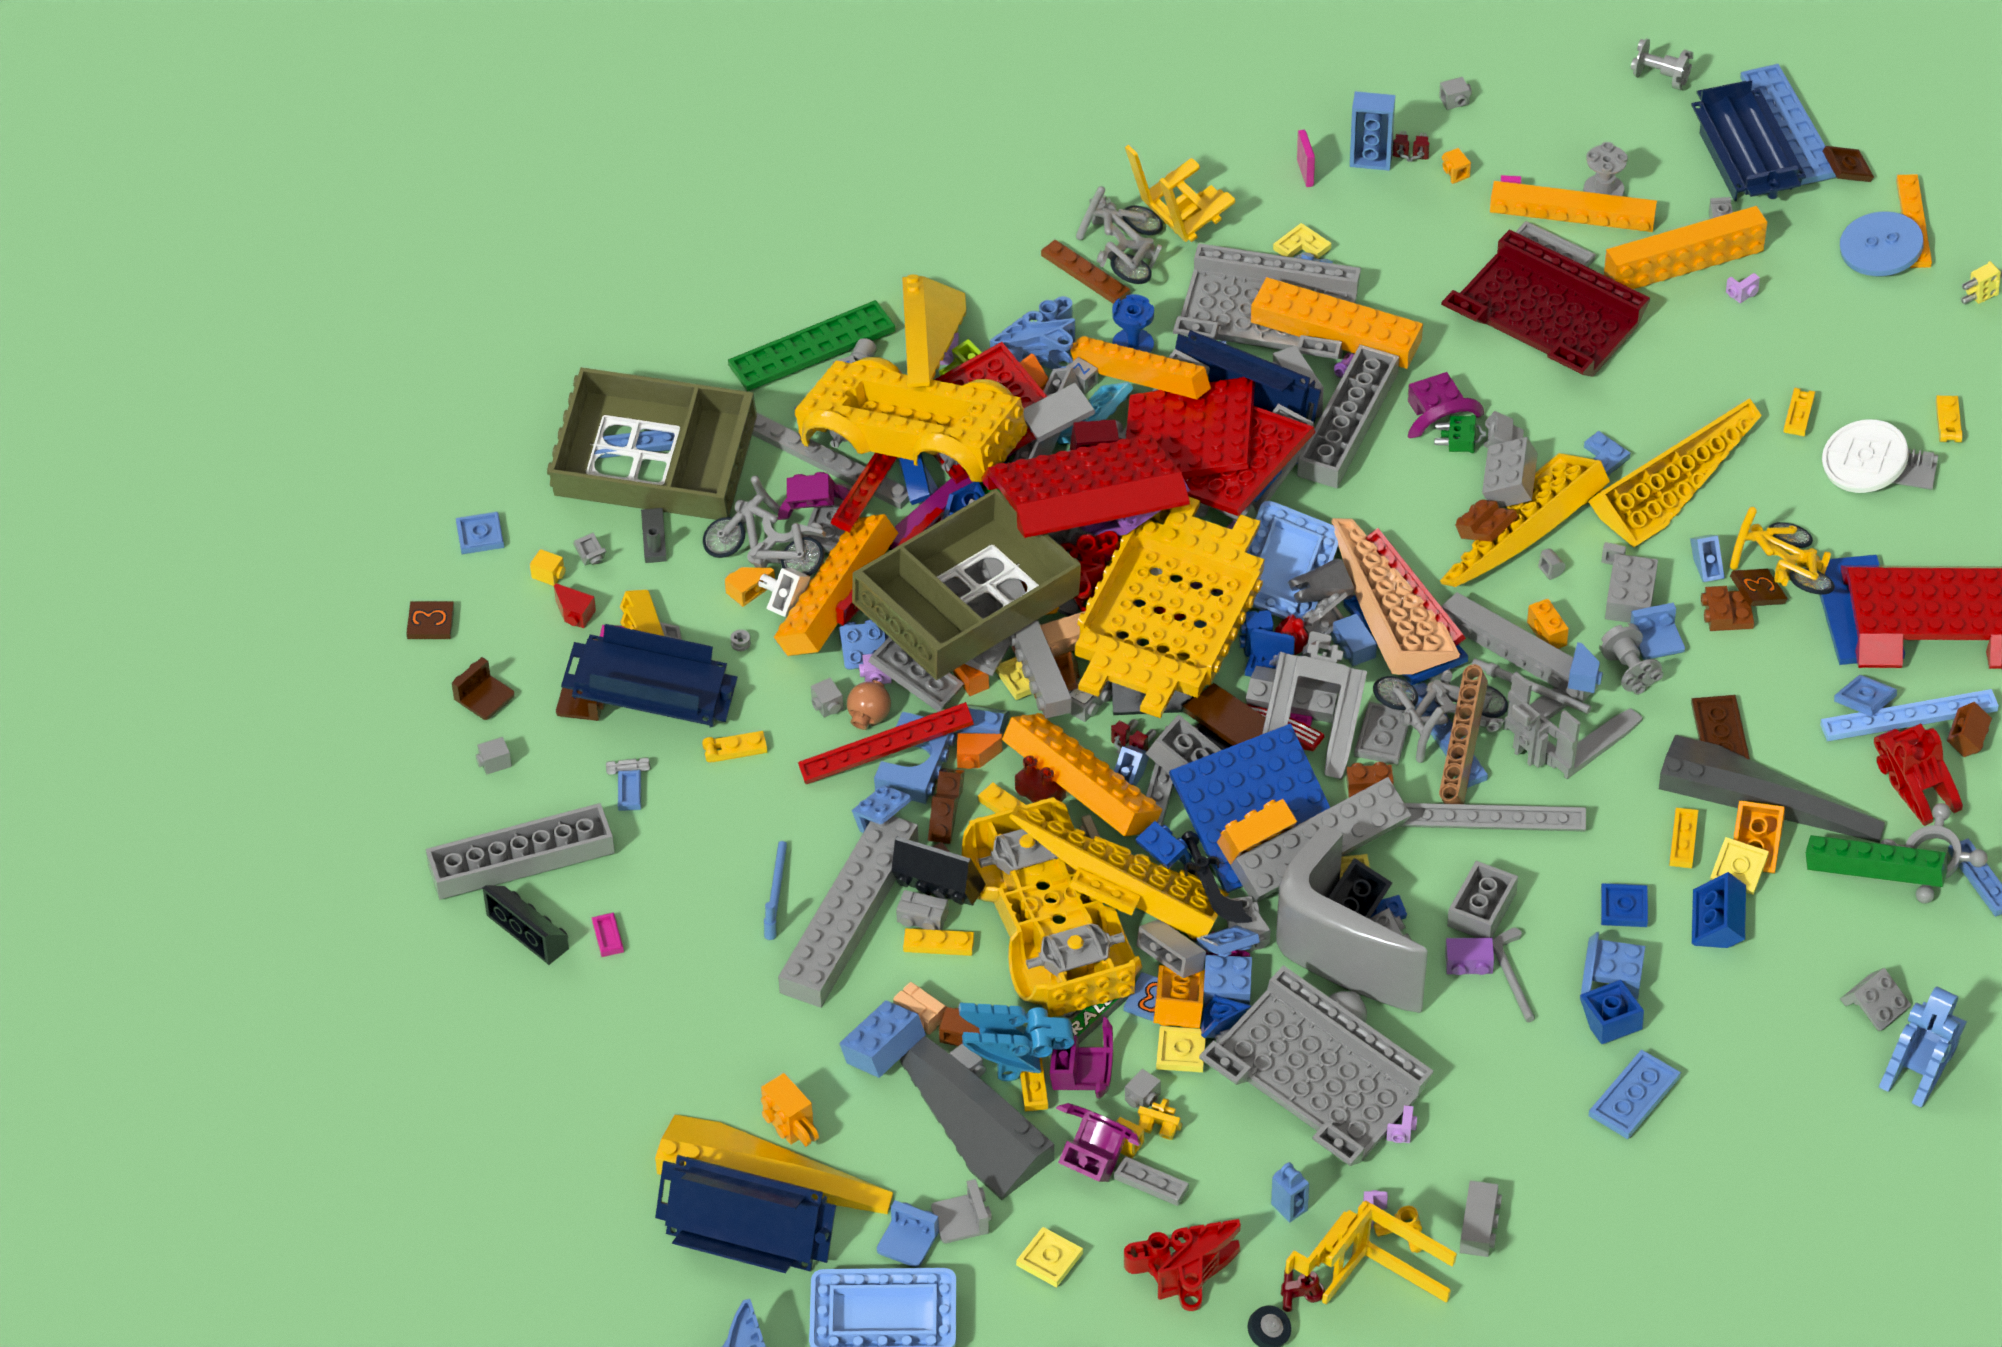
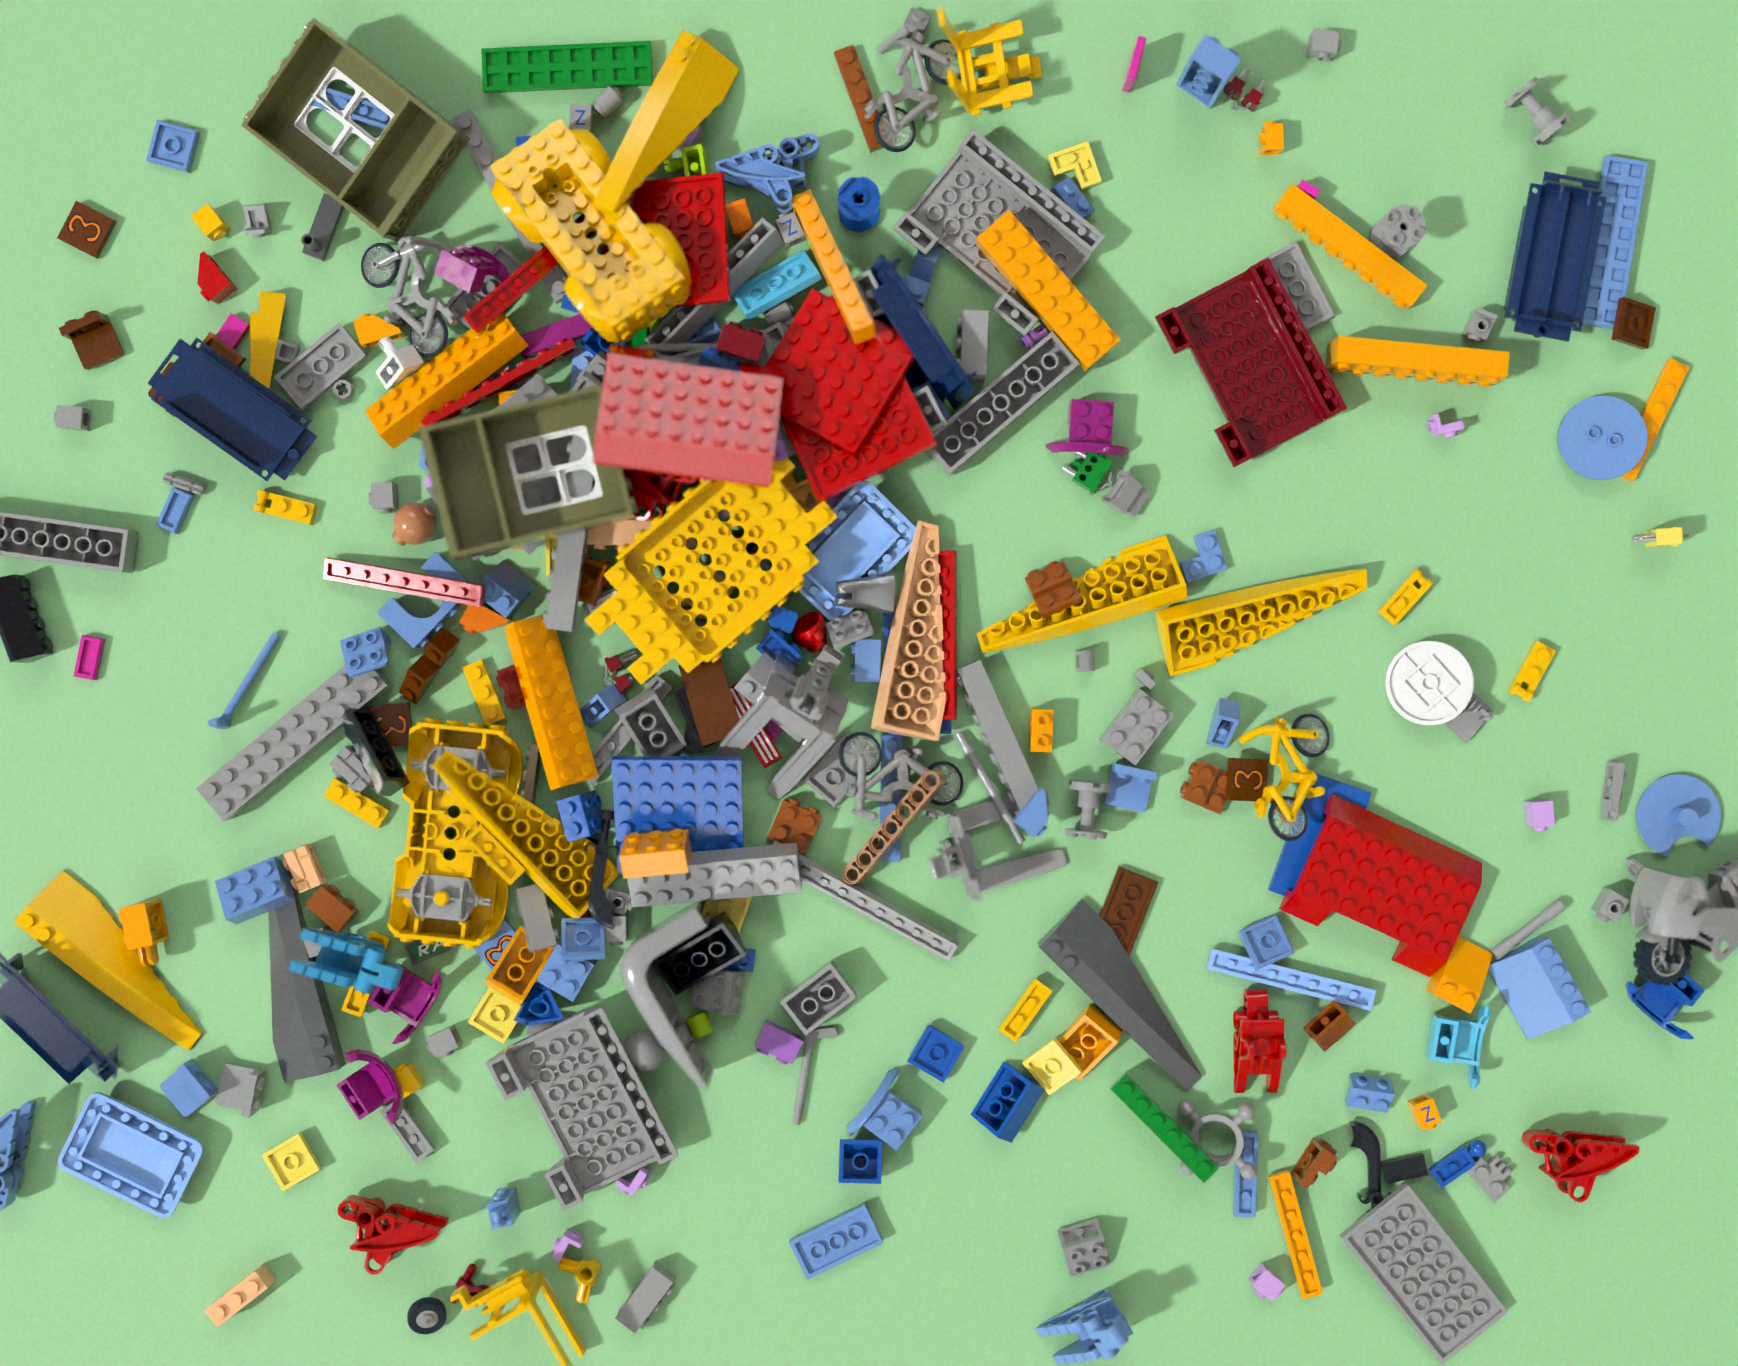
camera: 25 degrees right, 40 degrees up
(715, 622) = (320, 366): none -> light grey plate
(1057, 412) = (722, 293): light grey tile -> none
(1169, 1123) = (444, 1075): yellow hips -> none
(1510, 472) = (1103, 547): light grey brick -> none

